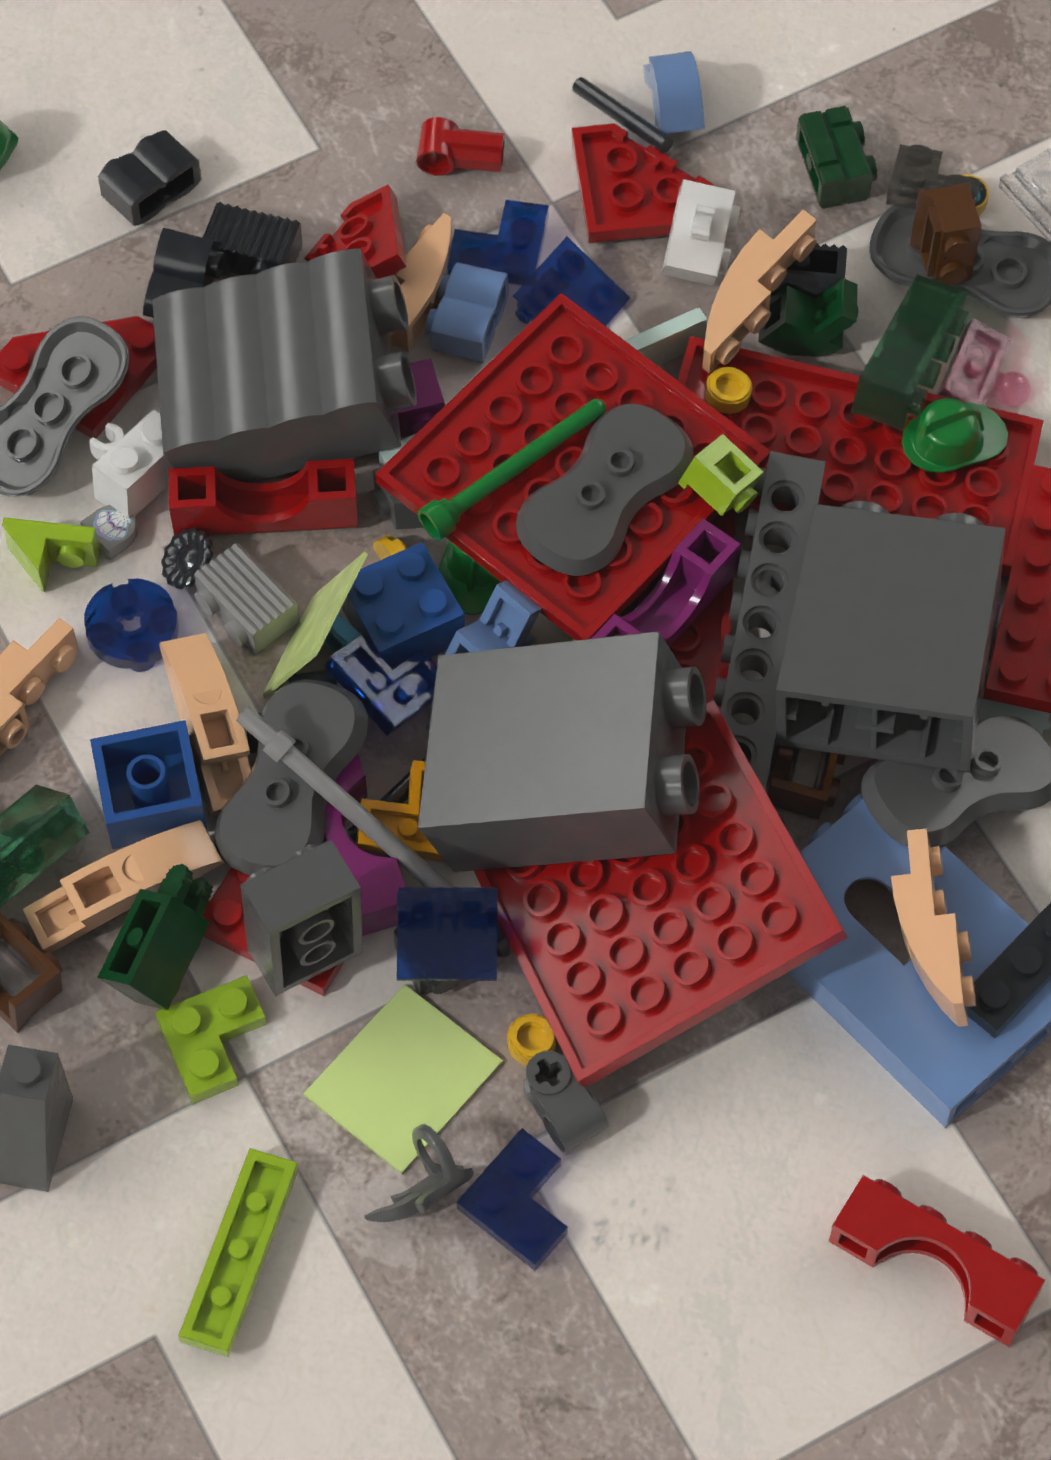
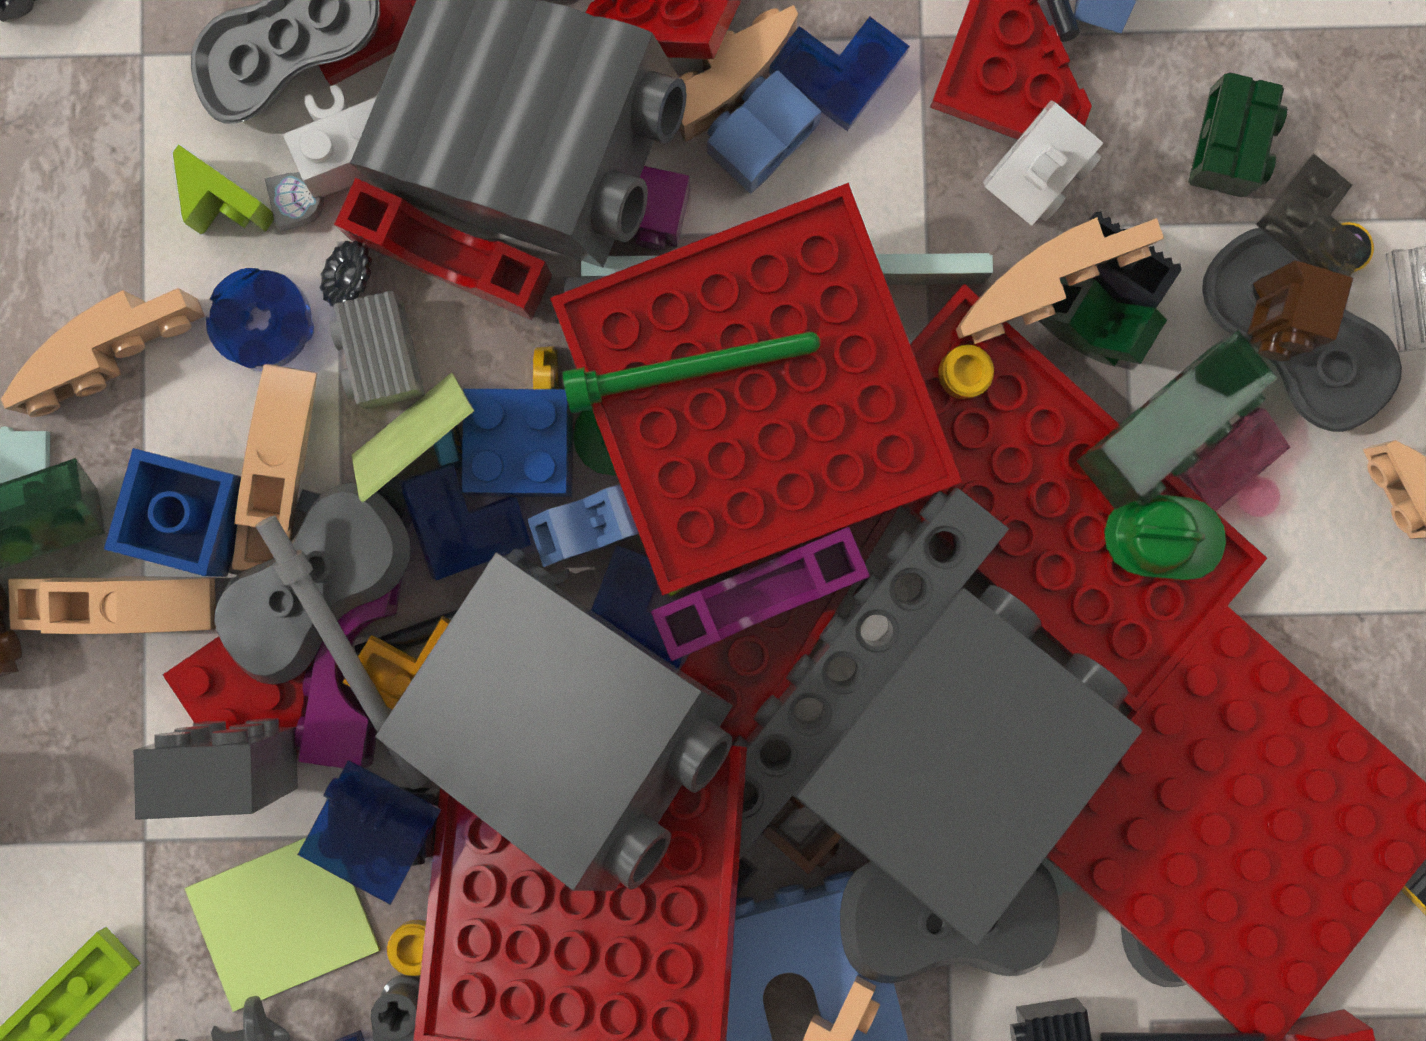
camera: 30 degrees right, 25 degrees up
(159, 939) = (105, 688): dark green hinge -> none
(198, 1028) = (106, 797): lime plate -> none
(575, 276) = (879, 160): clear blue hinge -> none
(585, 514) = (807, 421): dark grey plate -> none
(723, 476) = (905, 494): lime brick -> none

